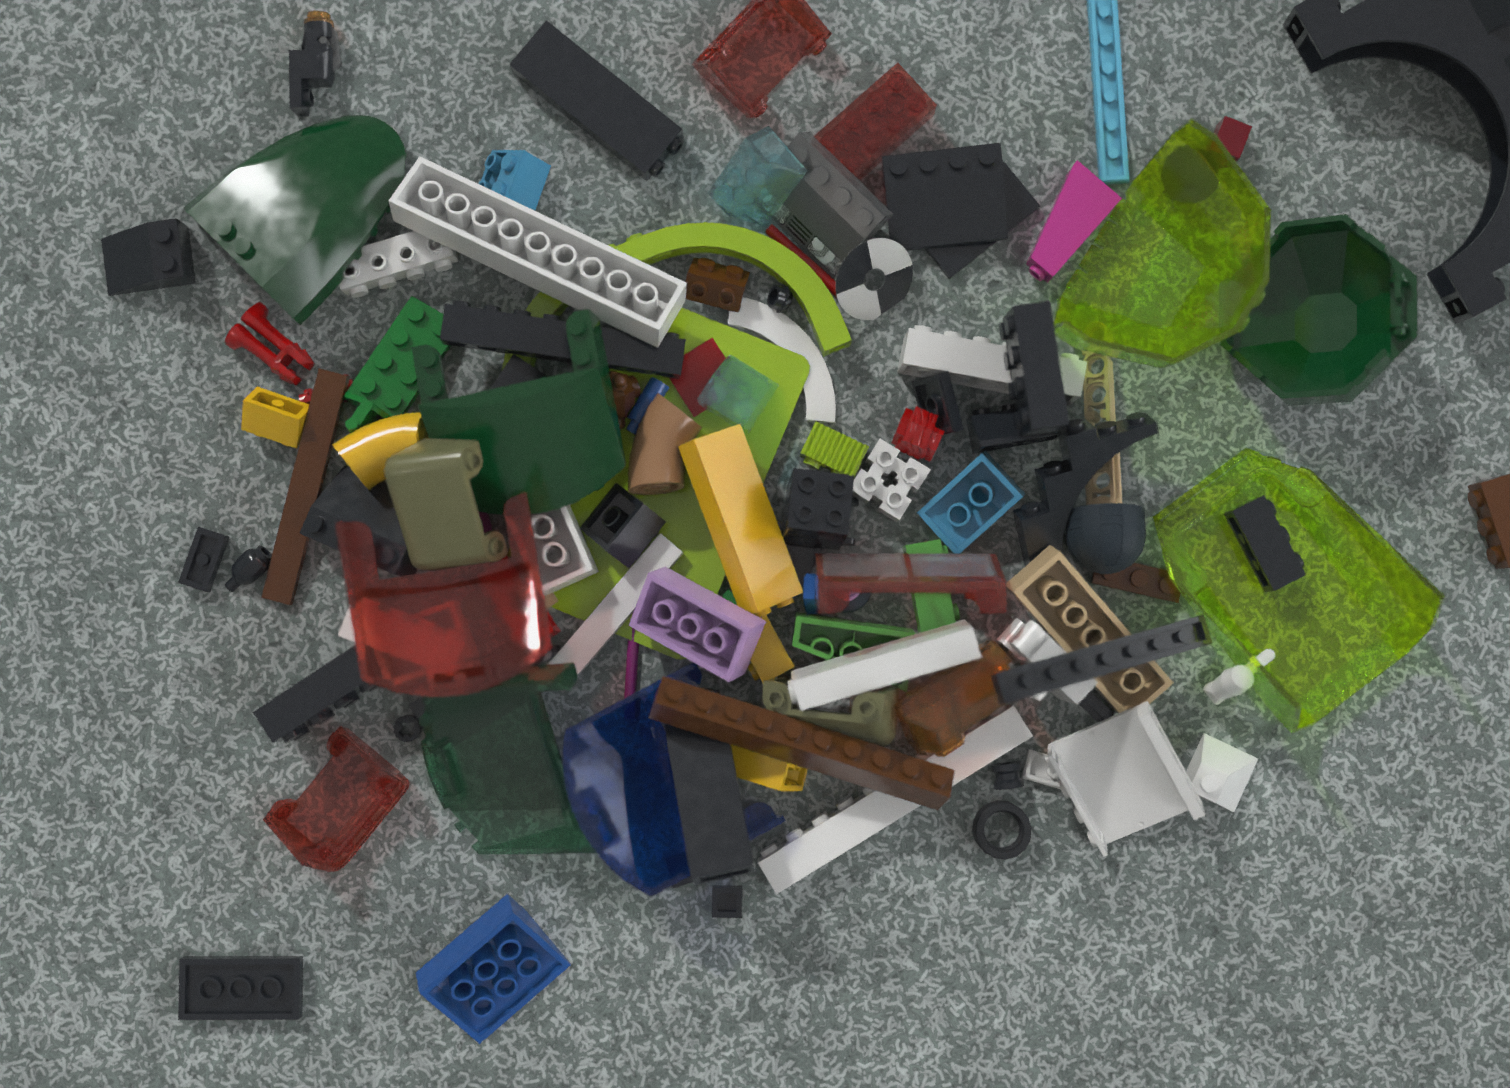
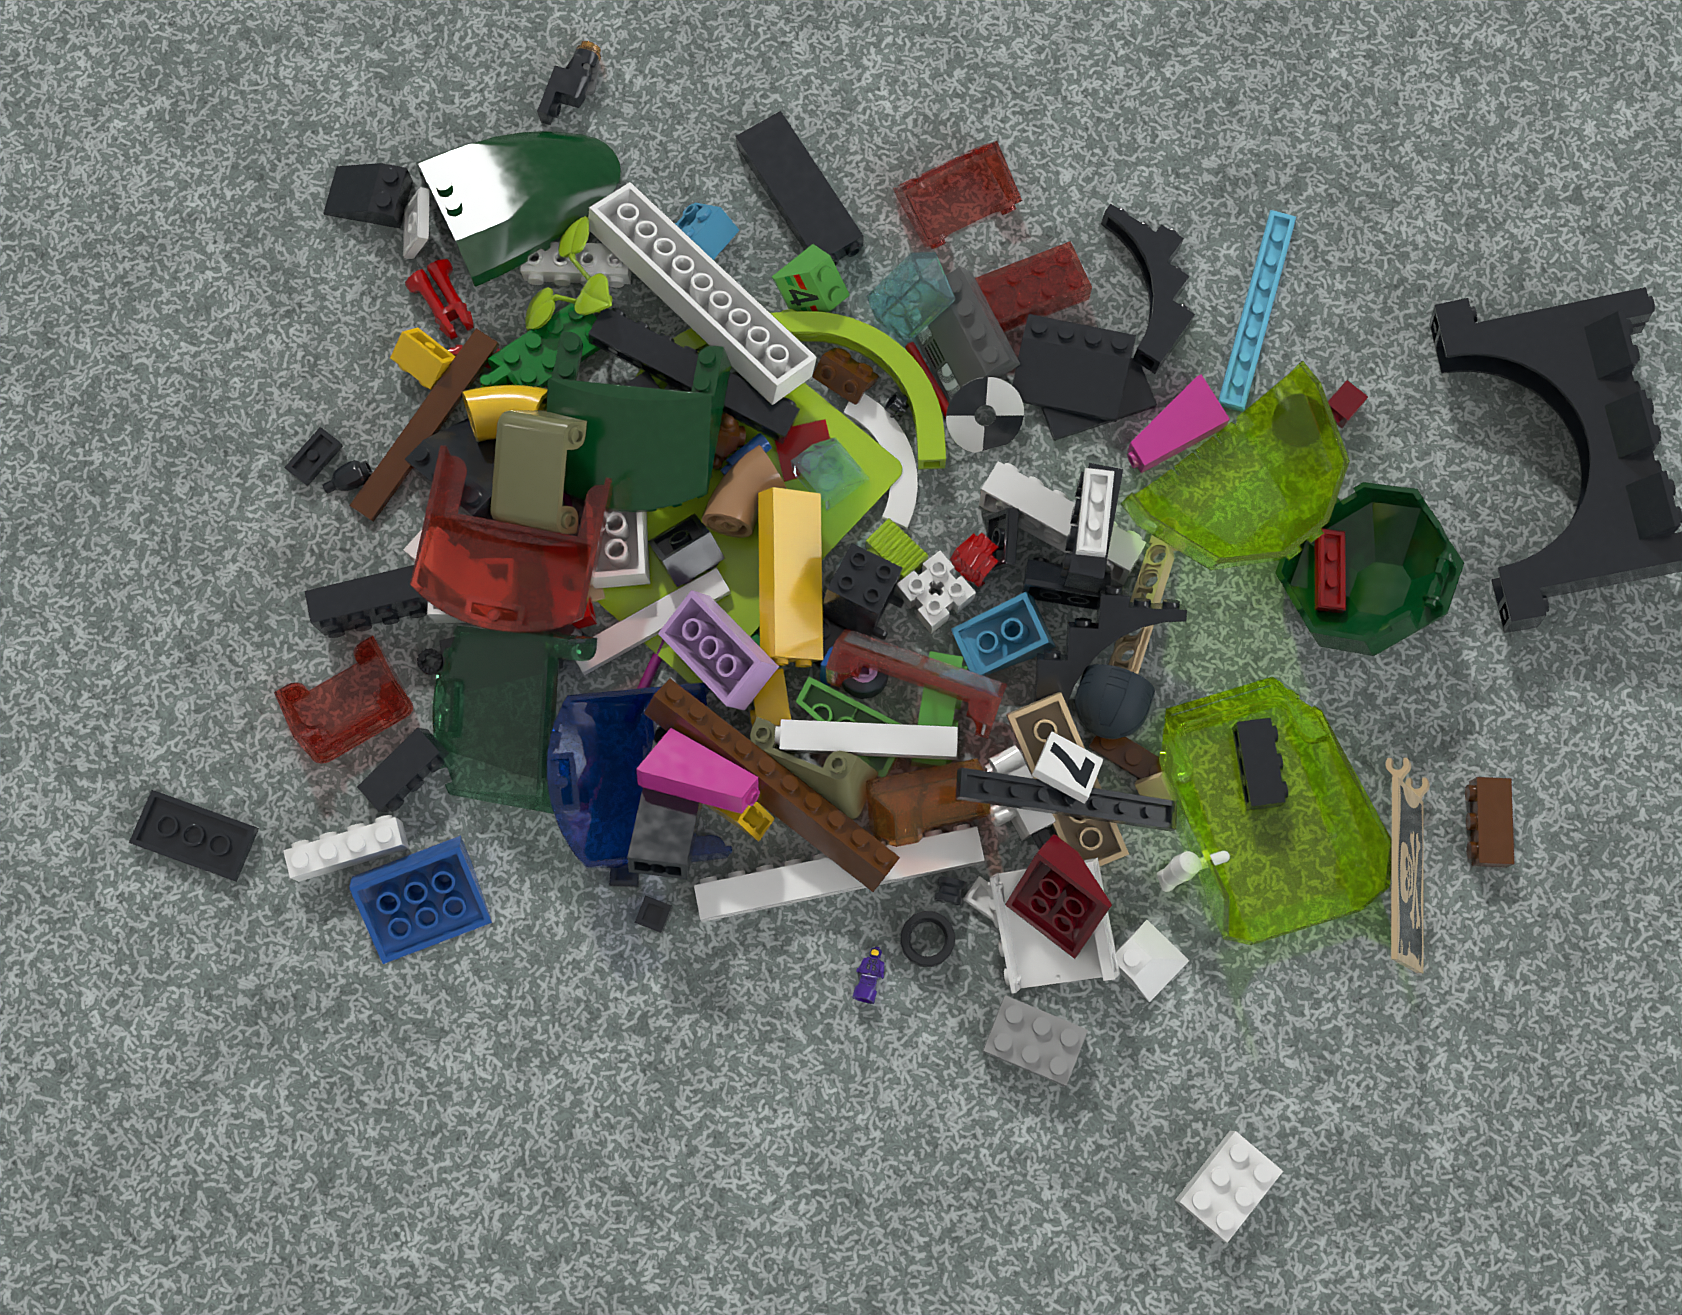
camera: 25 degrees right, 10 degrees down
(210, 275) = (416, 223): none -> white tile
(393, 953) = (345, 849): none -> white brick
(425, 851) = (403, 770): none -> black brick
(428, 291) = (593, 295): none -> lime plant
(647, 199) = (811, 282): none -> bright green slope
(726, 763) = (697, 774): none -> dark pink slope
(957, 878) = (870, 969): none -> dark purple piece
(1005, 72) = (1164, 284): none -> black arch
(1037, 358) = (1094, 512): none -> white tile
(1093, 626) = (1067, 767): none -> white tile
(1126, 753) = (1060, 897): none -> dark red slope
(1140, 893) = (1034, 1041): none -> light grey brick
(1170, 605) = (1153, 786): none -> tan tile
(1275, 328) = (1330, 572): none -> red tile
(1369, 964) = (1228, 1186): none -> white brick
(1426, 521) = (1407, 868): none -> flag

